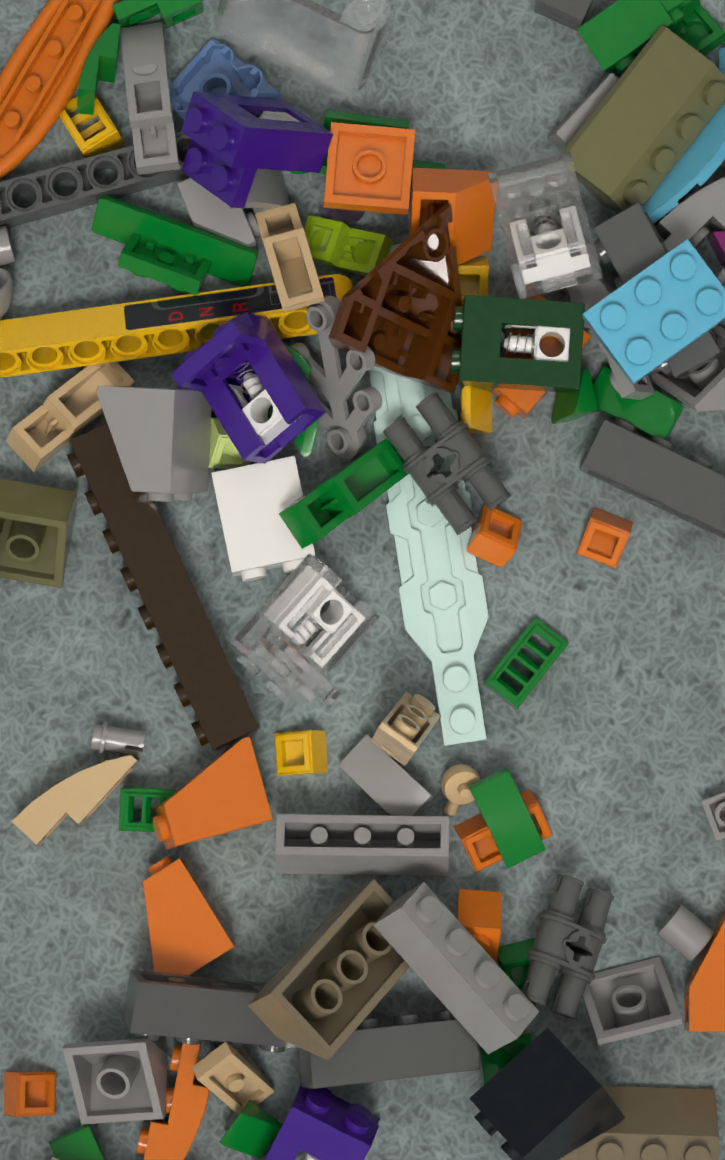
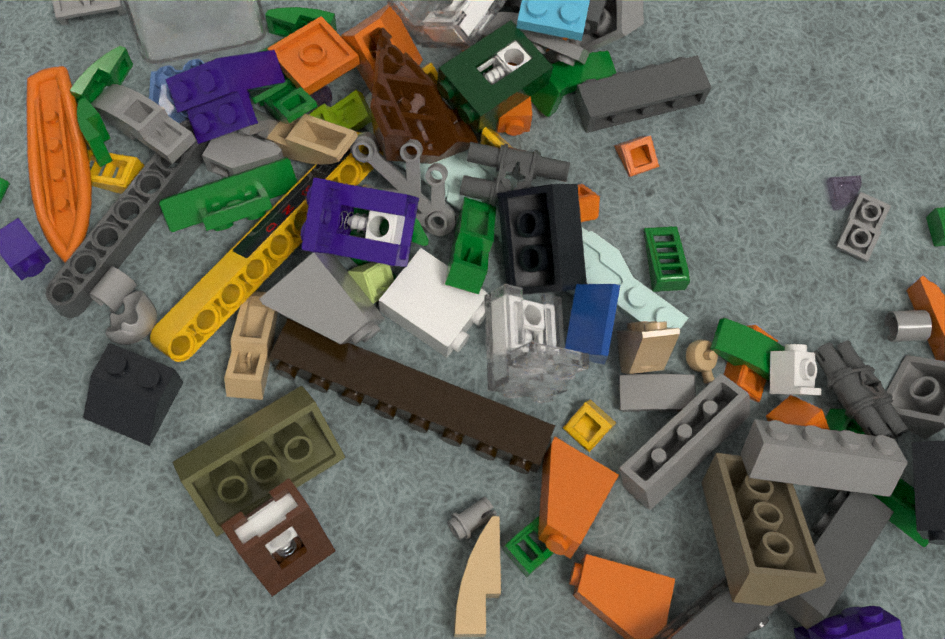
camera: 45 degrees left, 15 degrees down
(301, 202) = (289, 103): none -> green slope
(381, 667) = (593, 320): none -> blue slope
(394, 102) = (290, 19): none -> green slope
(410, 549) = (542, 238): none -> black slope
(522, 875) = (793, 371): none -> white brick

